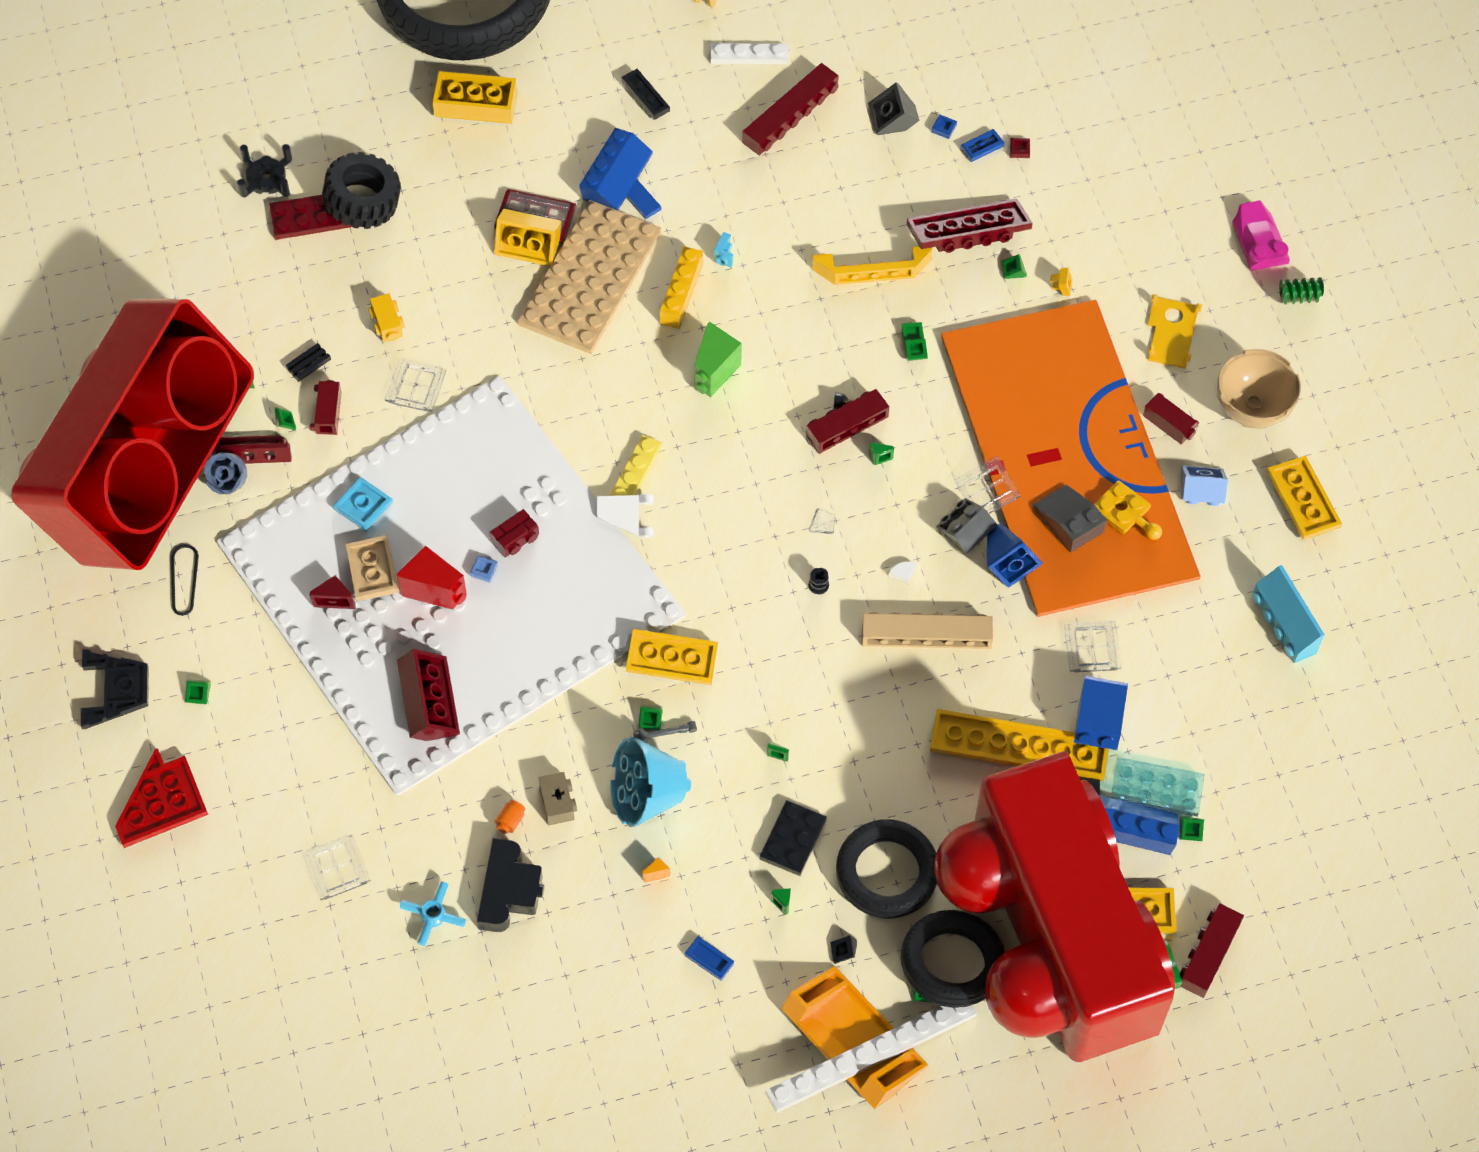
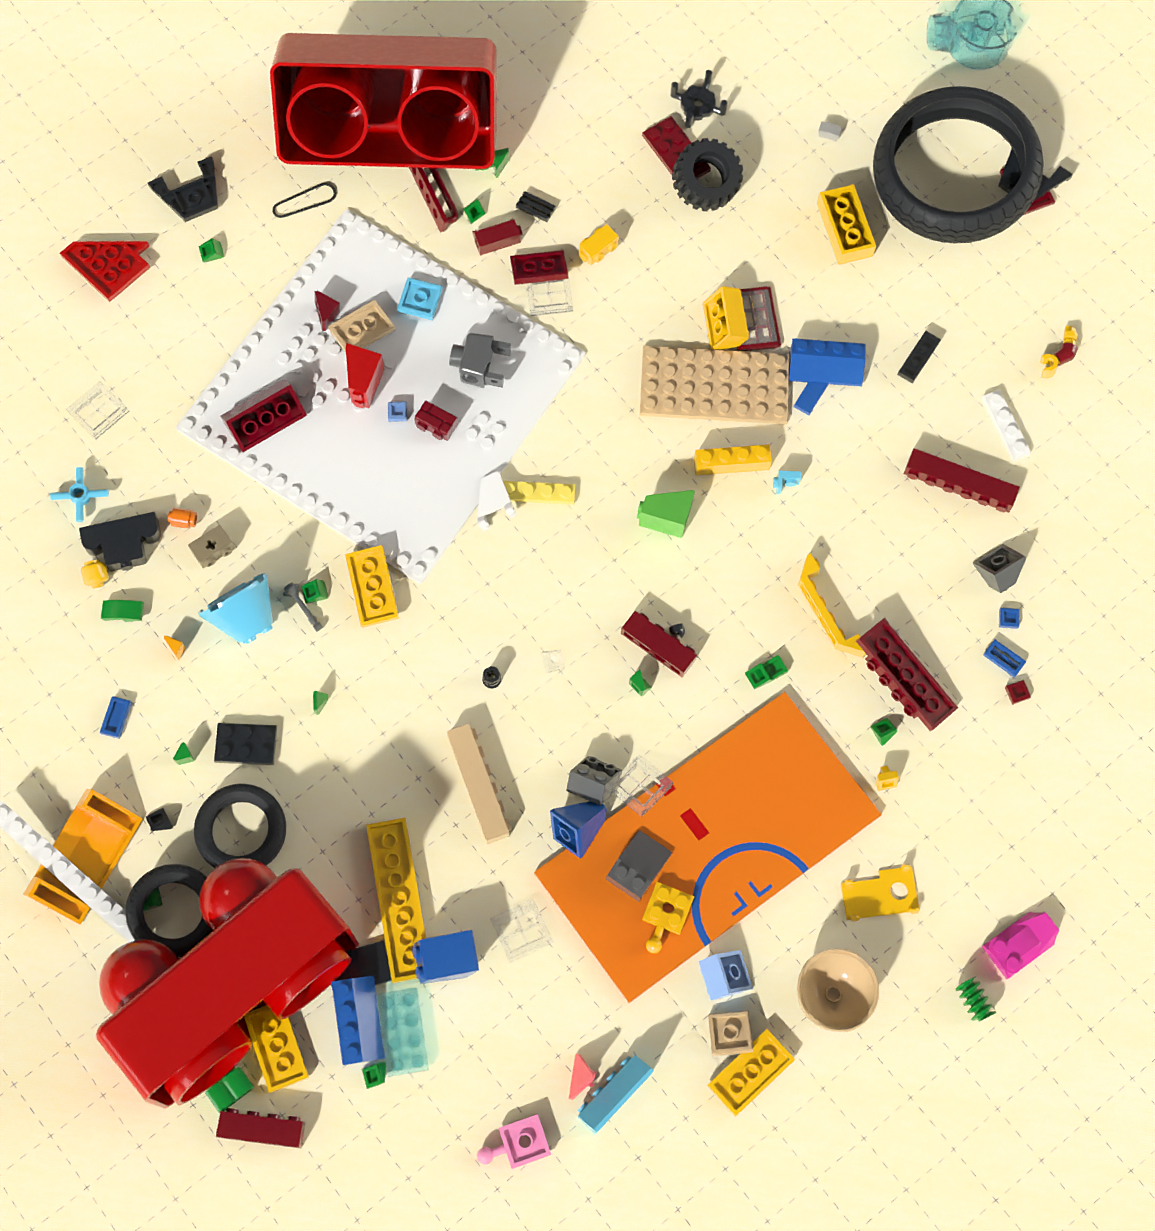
camera: 65 degrees right, 10 degrees up
(225, 473) = (402, 188): sand blue cylinder -> none
(361, 75) = (829, 131): none -> light grey piece
(384, 380) = (539, 267): none -> dark red plate
(466, 469) = (475, 359): none -> dark grey piece
(535, 926) = (94, 573): none -> yellow head
(589, 912) = (122, 610): none -> green slope
(903, 571) = (531, 744): white tile -> none
(1170, 418) = (782, 923): dark red brick -> none
(1258, 641) = (581, 1077): none -> coral piece
(1261, 499) = (730, 1033): none -> tan tile
(1296, 725) = (510, 1136): none -> bright pink plate

